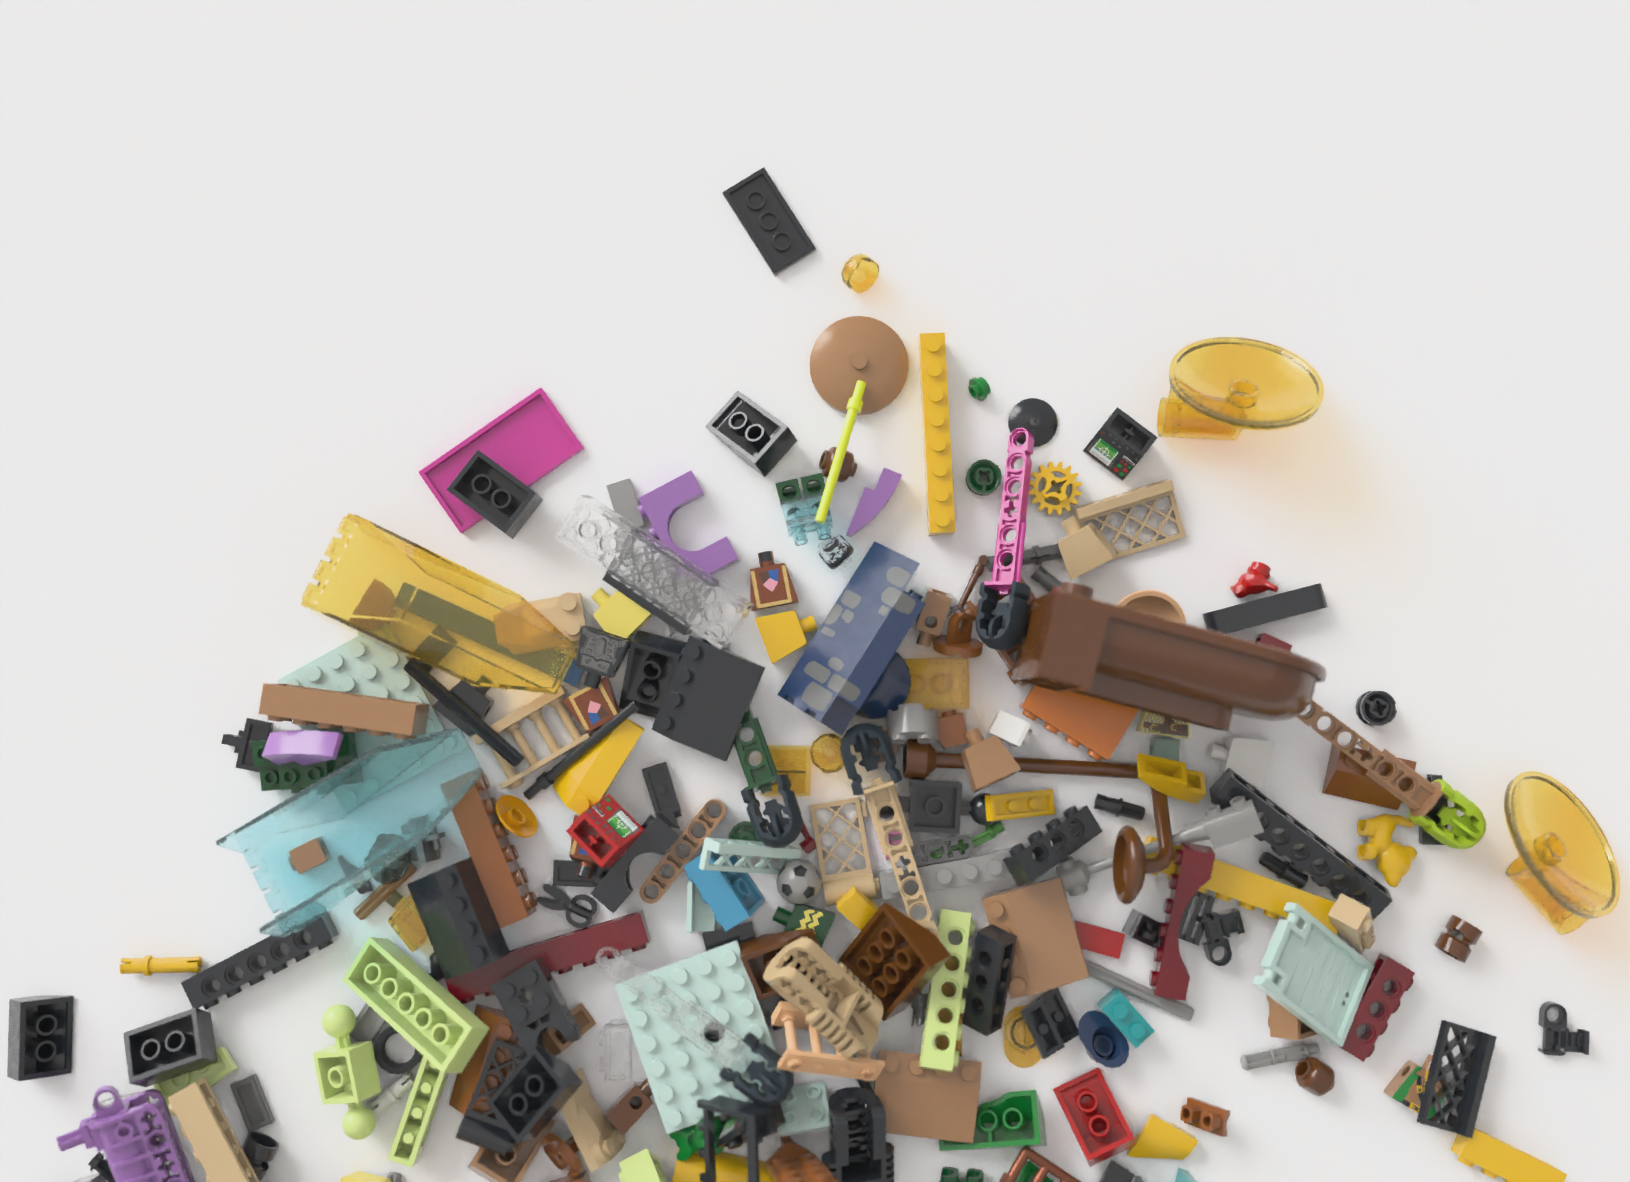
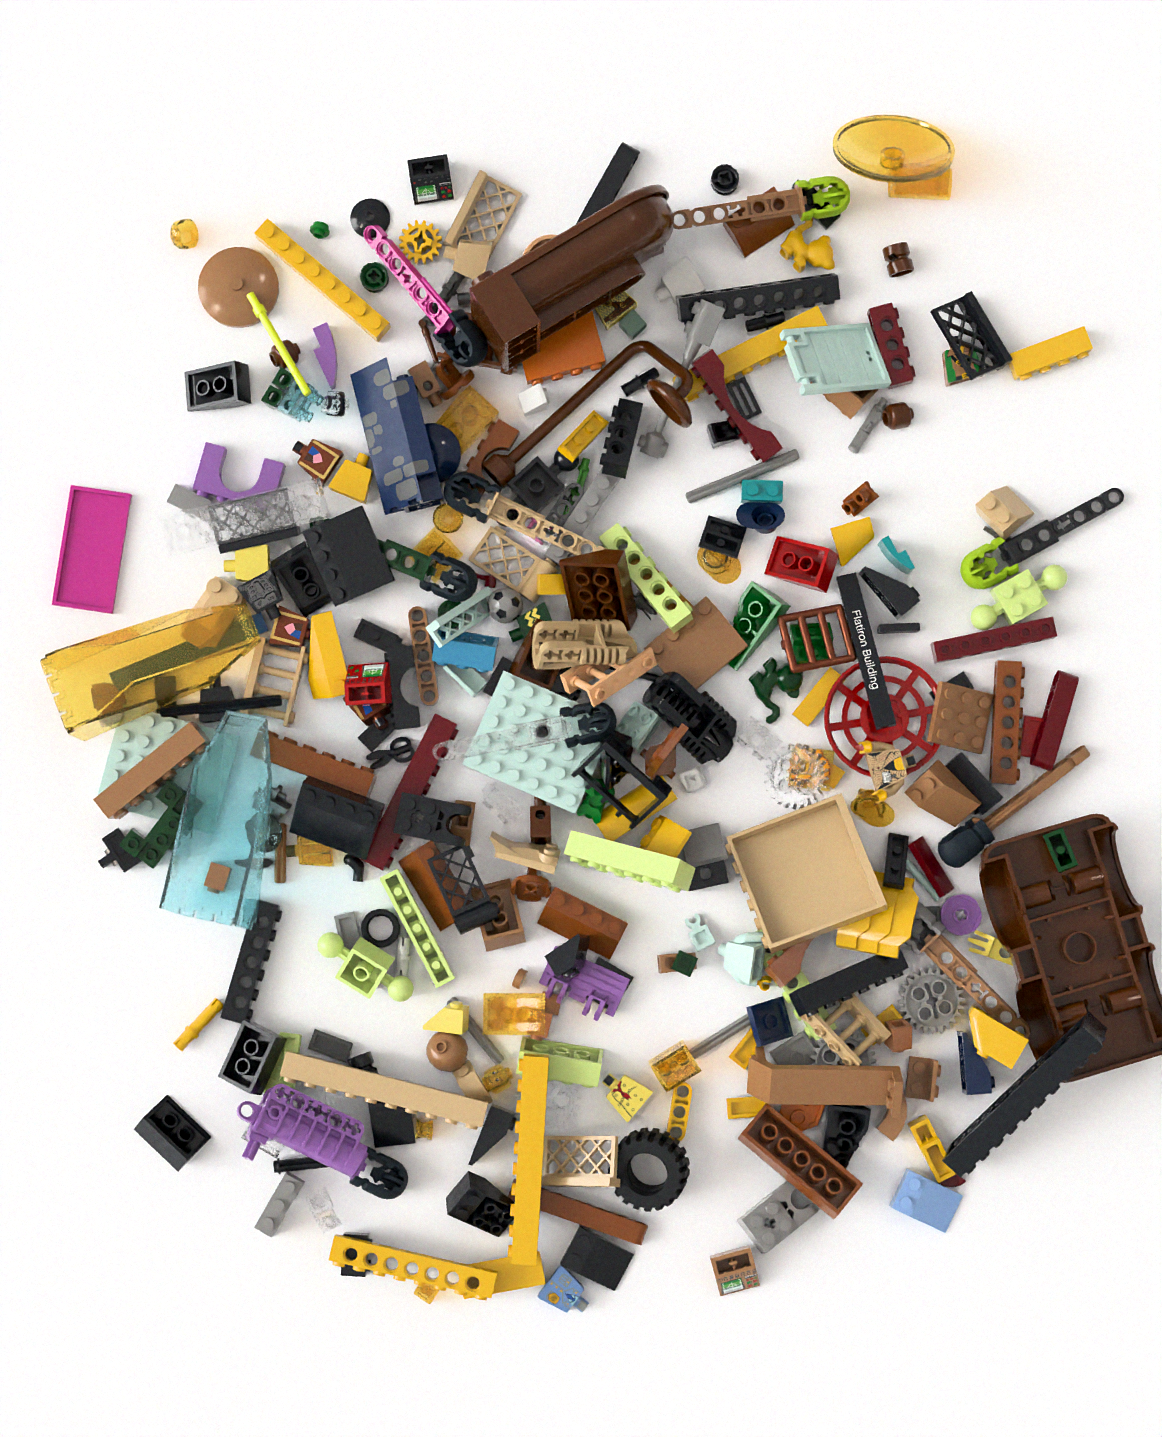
camera: 45 degrees left, 0 degrees up
(302, 746) = (151, 813): slope -> none
(415, 1005) = (362, 886): yellowish green brick -> none
(495, 494) = (109, 568): black brick -> none
(516, 816) = (310, 733): light orange dish -> none
(534, 1094) = (477, 861): black slope -> none
(546, 779) = (305, 697): black bar -> none
(769, 221) = (101, 258): black tile -> none
(912, 723) = (474, 451): light grey cylinder -> none
(987, 760) = (538, 429): medium nougat torso -> none
(989, 979) = (672, 557): black brick -> none
(1047, 939) = (666, 498): medium nougat slope -> none
(1100, 939) = (703, 466): red tile -> none
(1171, 778) = (650, 334): yellow slope -> none
(1216, 929) = (762, 393): black piece -> none
(1236, 386) = (458, 80): clear yellow dish -> none
(1254, 581) = (585, 179): red animal -> none
(1353, 922) = (829, 309): tan slope -> none
(1556, 1039) = (1008, 258): black piece -> none

